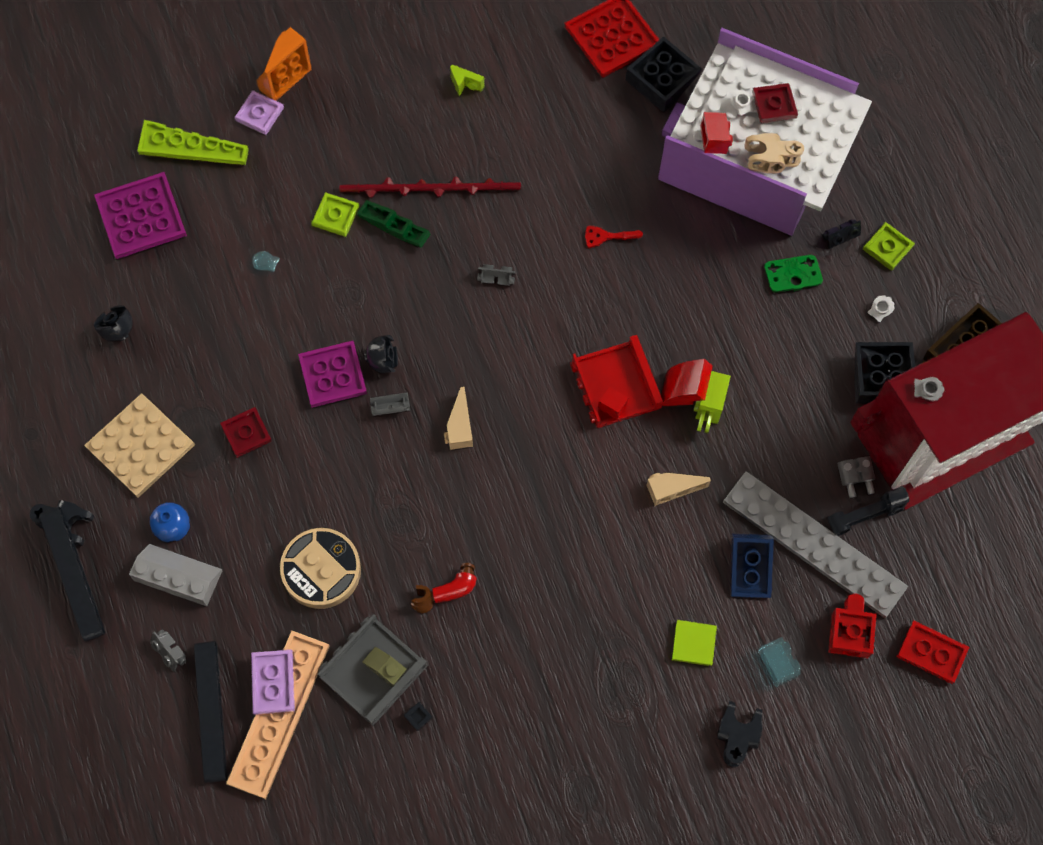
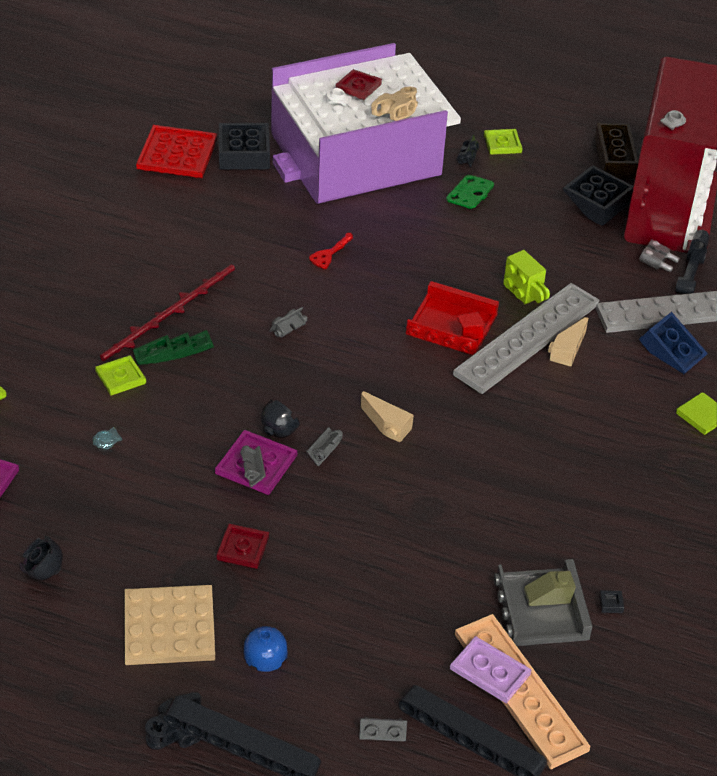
camera: 50 degrees left, 25 degrees down
(175, 574) = (321, 677): light grey slope -> none
(310, 383) = (253, 464): none -> dark grey hinge
(320, 568) = (418, 578): piece -> none
(459, 587) = (526, 504): piece -> none
(466, 78) = (106, 237): lime slope -> none
(652, 450) = (525, 338): none -> light grey plate
(686, 383) = (500, 277): red slope -> none
(715, 133) = (348, 116): piece -> none
(881, 307) = (545, 170): white animal -> none

